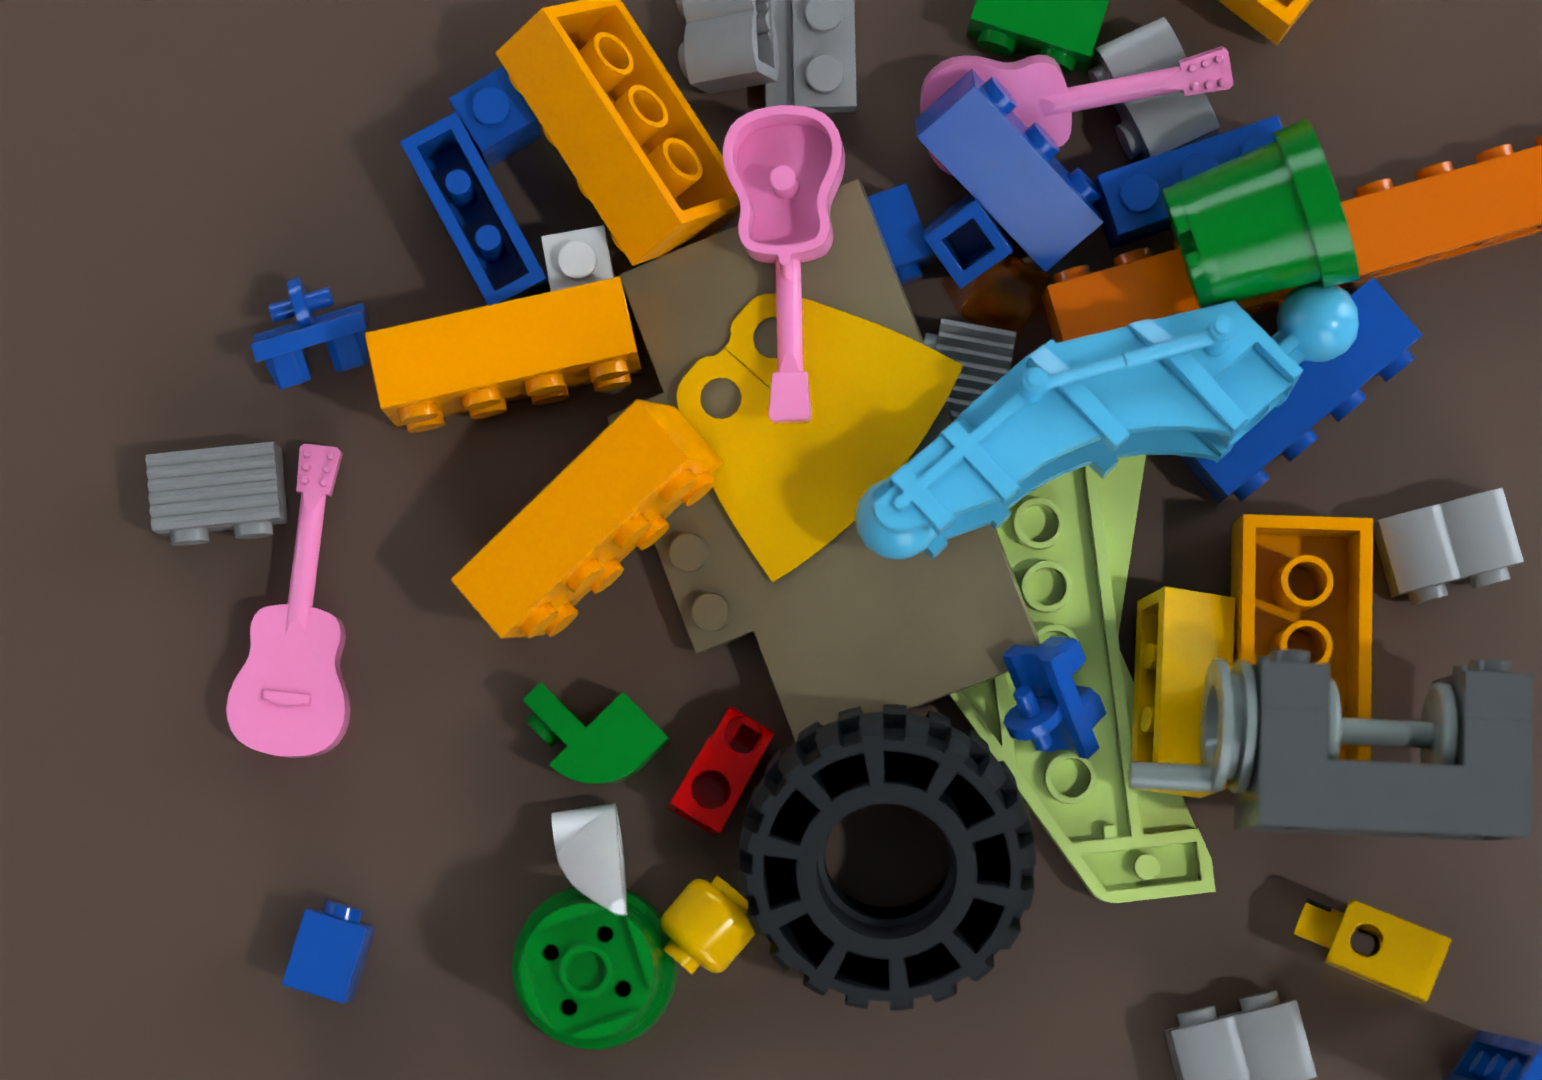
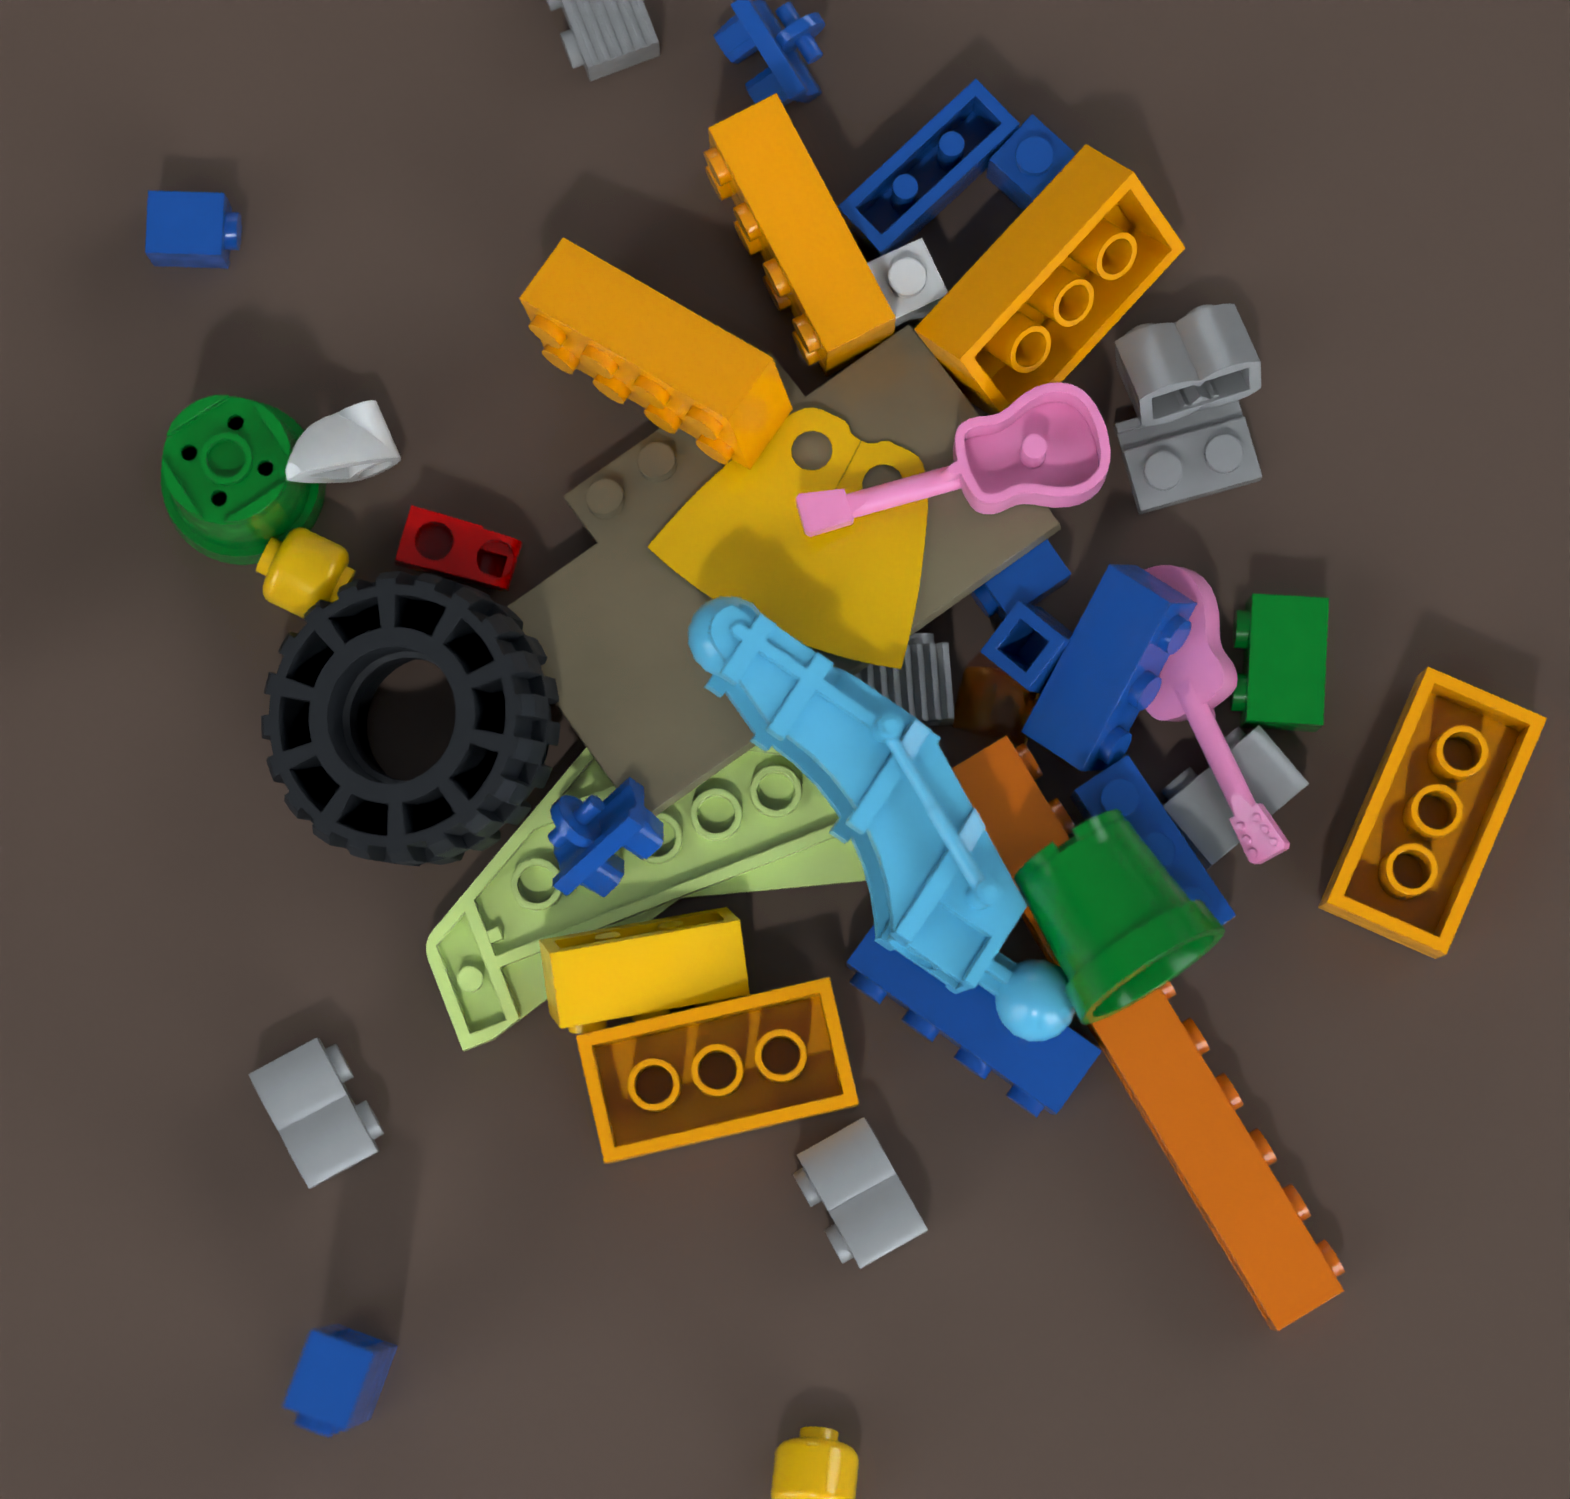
camera: 75 degrees right, 0 degrees up
(292, 685) = (436, 125): bright pink piece -> none
(607, 749) = (445, 430): green brick -> none
(1279, 738) = (563, 1080): dark grey piece -> none
(1406, 956) = (442, 1243): yellow torso -> none

